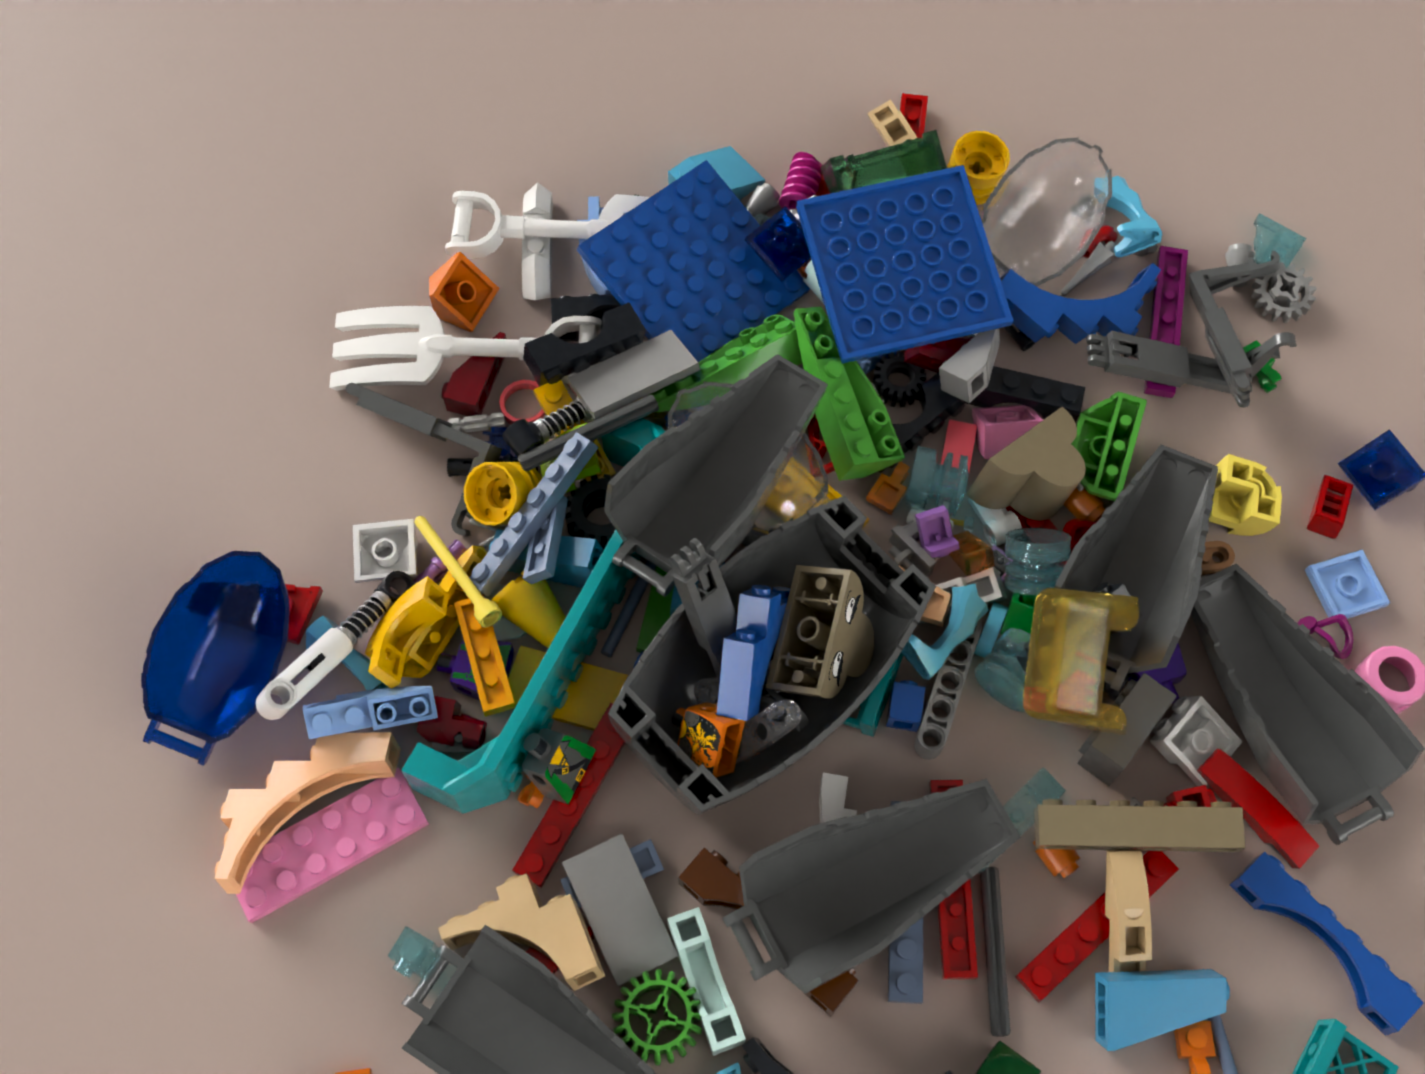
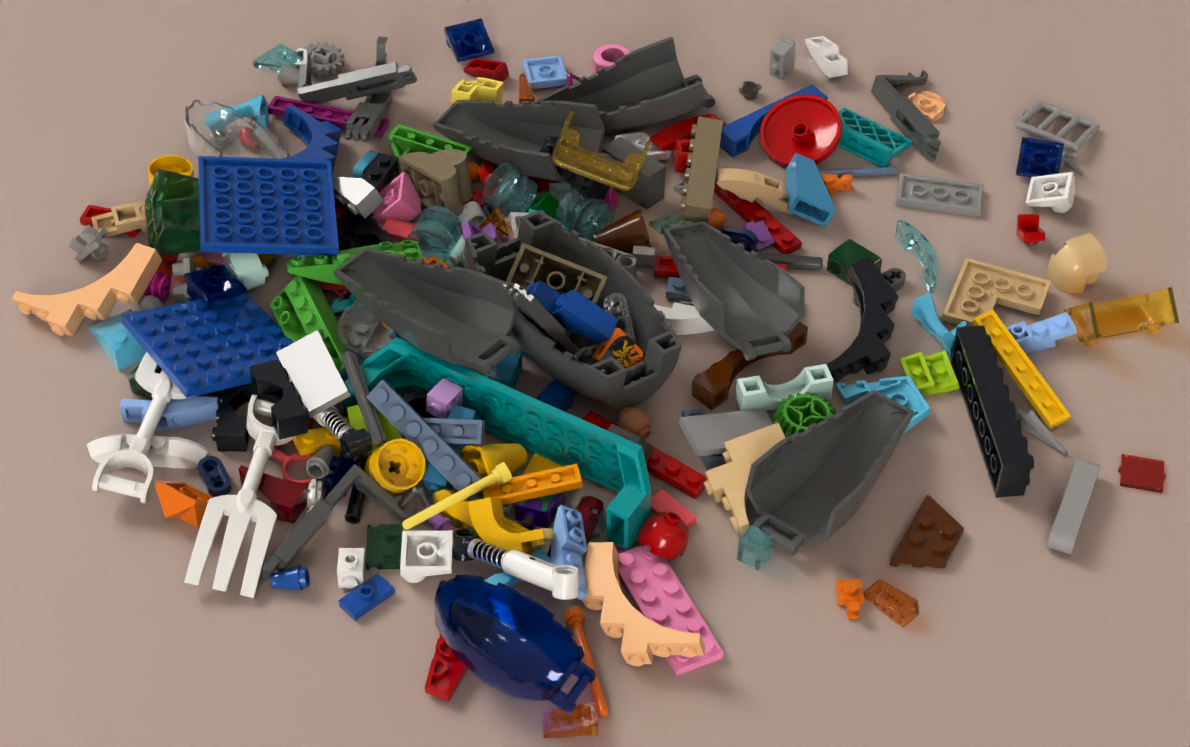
camera: 85 degrees left, 20 degrees down
(154, 769) = (582, 728): none -> clear orange slope
(296, 736) = (575, 619): none -> orange piece
(335, 501) = (366, 596): none -> blue plate
(354, 421) = (293, 578): none -> blue cone
(368, 477) = (351, 567): none -> white brick
(411, 503) = (384, 546): none -> clear green plate
(422, 829) = (664, 534): none -> red cylinder
(483, 839) = (666, 503): none -> coral tile
(501, 314) = (214, 476): none -> dark blue plate
(517, 410) = (320, 462): none -> light grey cone
(597, 525) = (442, 397): none -> lavender brick
(624, 777) = (635, 421): none -> nougat head
(771, 153) = (124, 283): none -> light nougat arch
(853, 115) = (90, 243): none -> light grey hips
(956, 761) = (644, 256): none -> light grey slope
(991, 733) = (624, 233): none -> reddish brown cone
(1017, 903) = (741, 235): none -> dark blue plate
(1040, 928) = (762, 233): none -> medium lavender bracket
(1068, 375) = (361, 167): none -> medium azure beam
(1276, 563) = (525, 91): none -> clear orange slope
(1296, 988) = (801, 126): none -> red dish
(1390, 906) = (750, 90): none -> clear smoke plate

